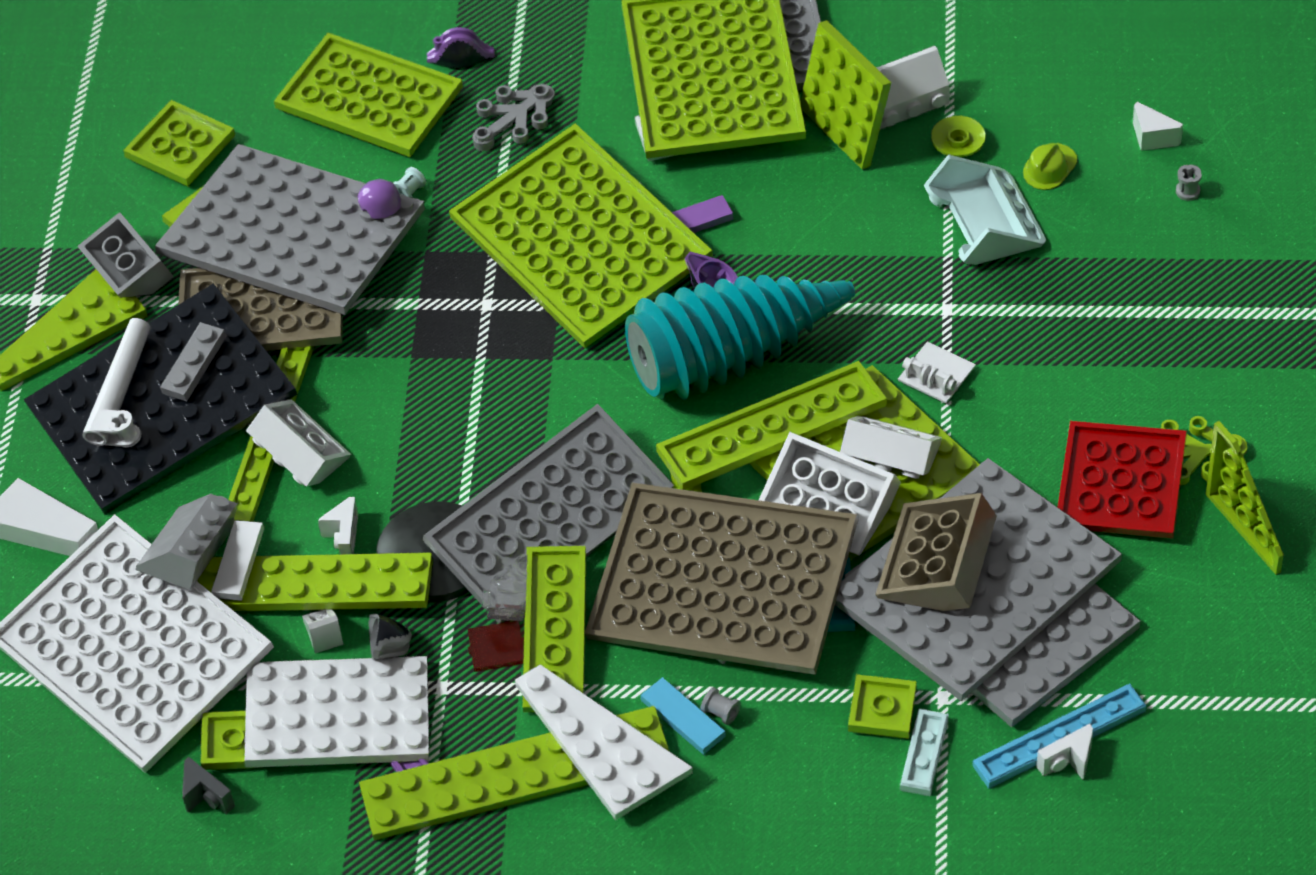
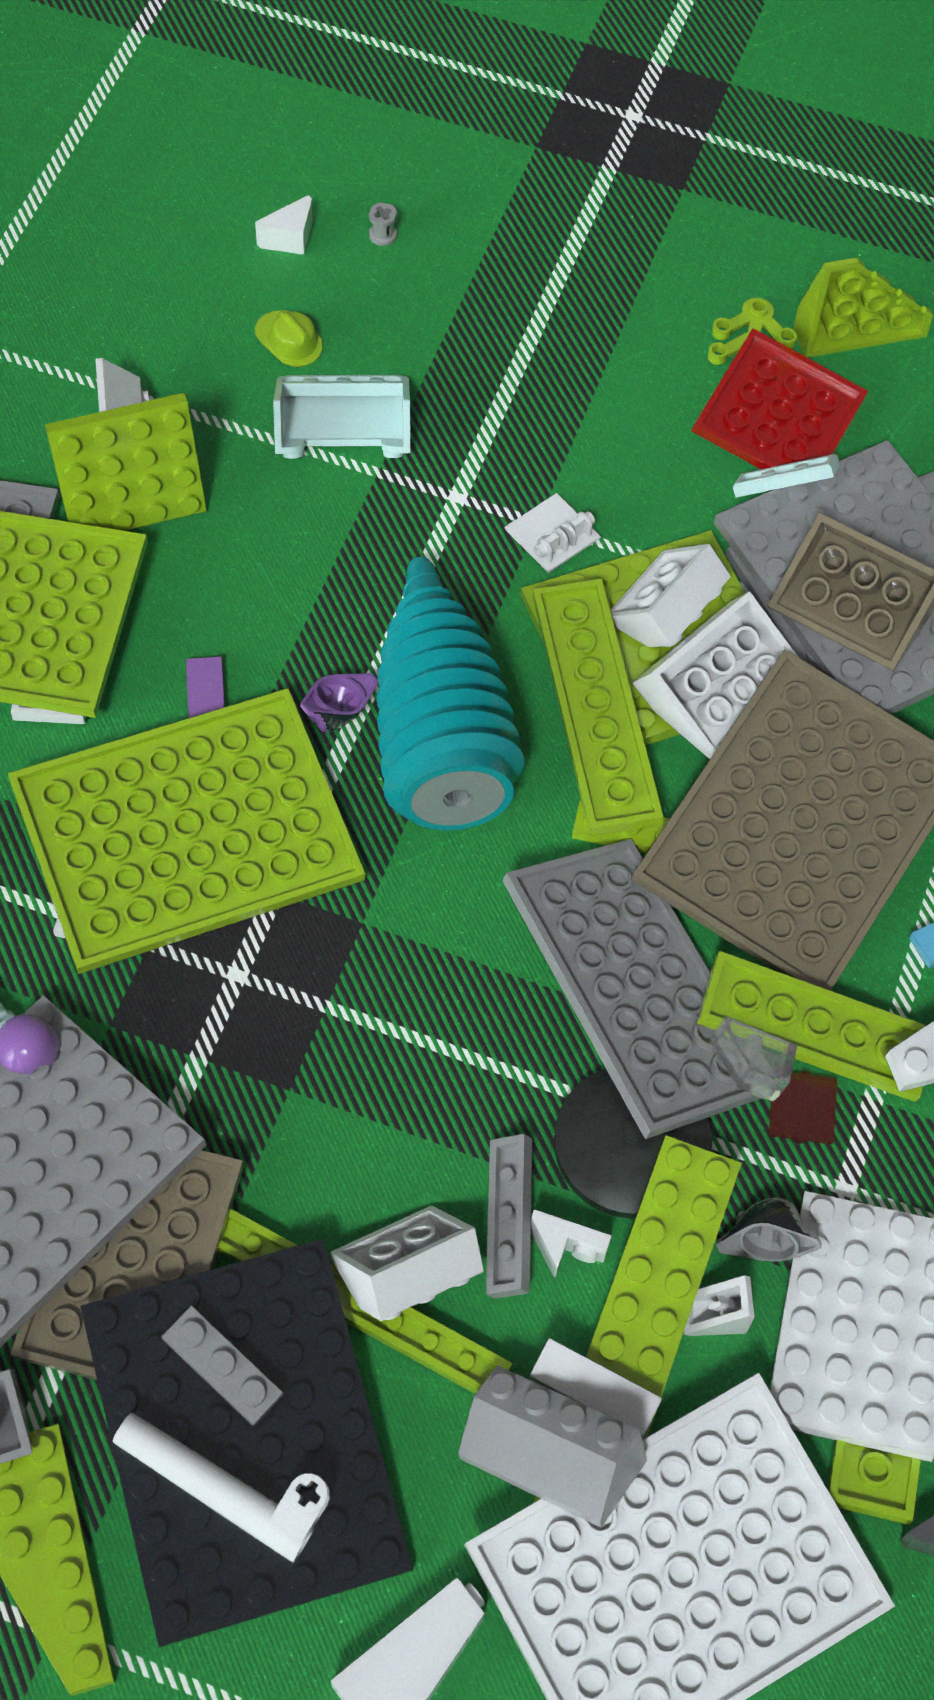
camera: 80 degrees left, 10 degrees up
(363, 490) = (509, 1217): none -> light grey plate
(958, 136) = (214, 399): lime dish -> none
(1048, 493) = (786, 475): none -> light aqua tile

